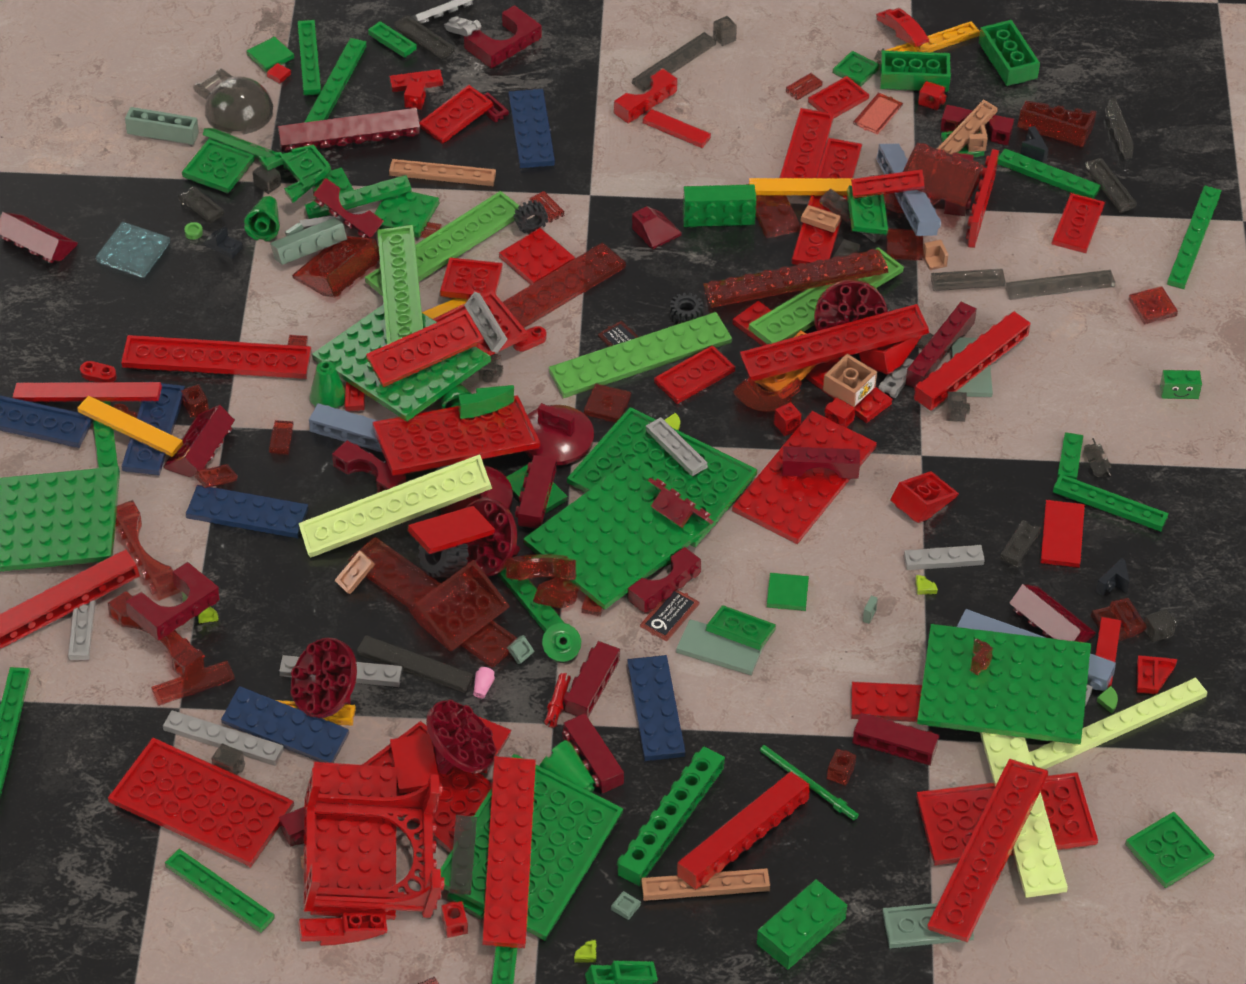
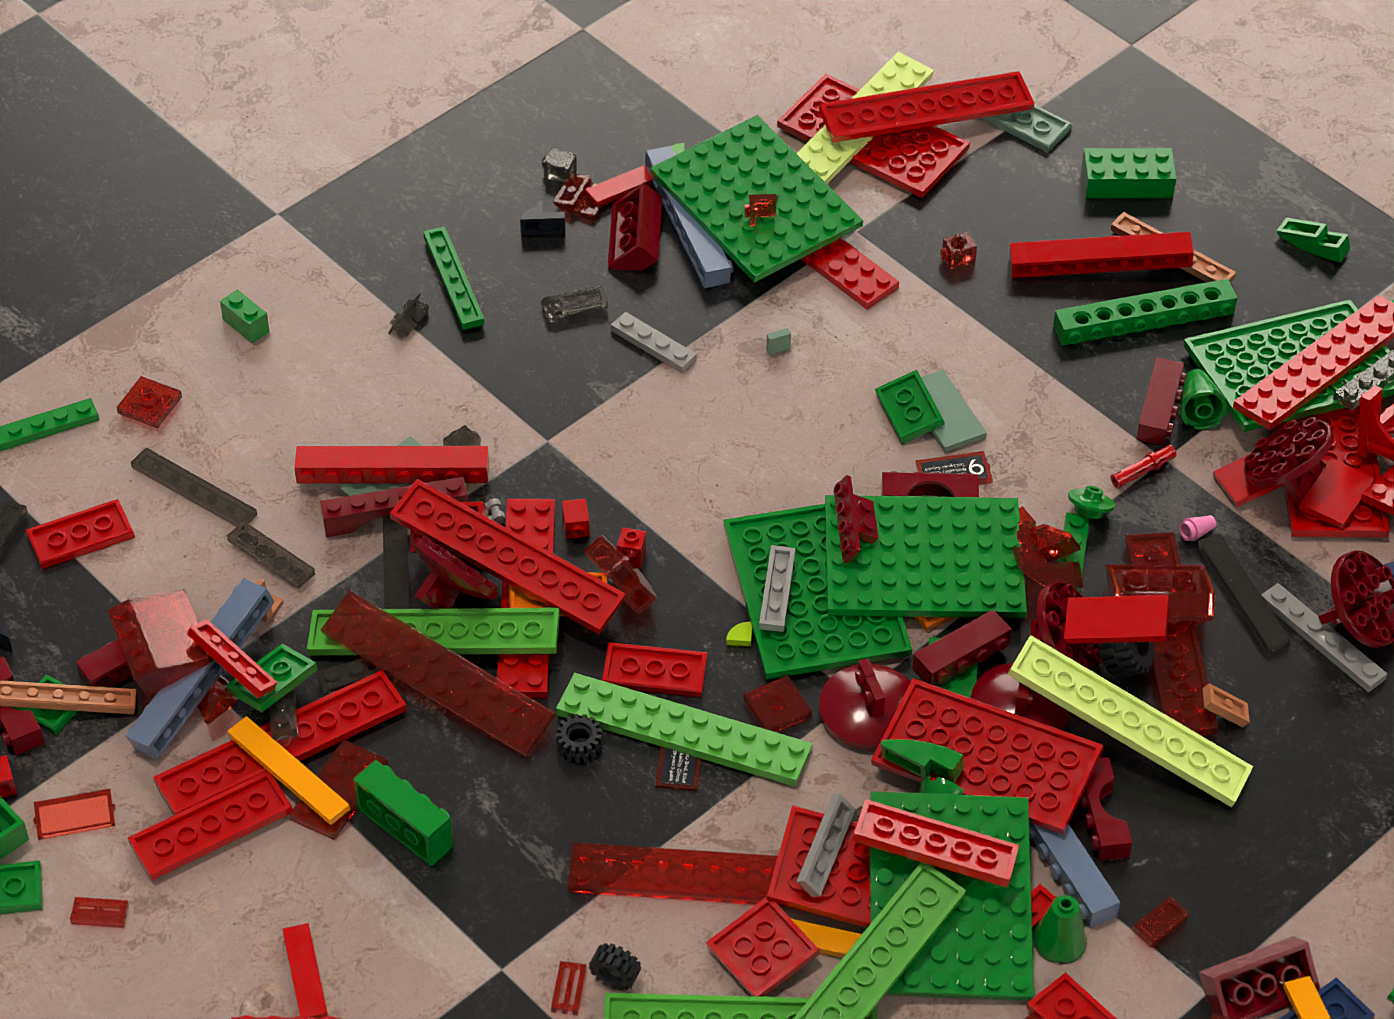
camera: 135 degrees left, 0 degrees up
(216, 476) = (1276, 925): clear red plate -> none
(247, 511) = (1273, 869): dark blue plate -> none
(520, 649) = (1132, 528): sand green tile -> none
(535, 256) = (657, 929): red plate -> none
(536, 336) = (770, 840): red plate -> none
(586, 953) = (1322, 276): lime tile -> none
(592, 679) = (1094, 457): dark red brick -> none
(625, 905) = (1253, 285): sand green tile -> none
(654, 227) = (488, 862): dark red slope -> none
(656, 708) = (1058, 405): dark blue plate -> none
(787, 591) = (826, 411): green tile -> none
(794, 502) = (679, 493): red plate -> none
(800, 459) = (683, 484): dark red arch -> none
(820, 218) = (324, 713): nougat plate -> none
(838, 804) = (993, 233): green bar -> none
(839, 97) = (86, 866): red tile -> none
(850, 380) = (539, 516): nougat brick -> none
(895, 738) = (889, 239): dark red brick -> none
(904, 244) = (269, 635): clear red plate -> none
(922, 496) = (603, 394): red slope -> none
(925, 586) = (701, 333): lime tile -> none
(978, 142) = (42, 672): nougat panel -> none
(982, 197) = (93, 625): red plate -> none
(1048, 174) = (26, 604): green plate -> none
(1062, 533) = (526, 287): red tile -> none
(1070, 455) = (425, 339): green plate -> none
(1120, 723) = (652, 126): yellowish green plate -> none
(1153, 673) = (616, 143): red wing -> none
(1169, 849) = (778, 38): green plate -> none

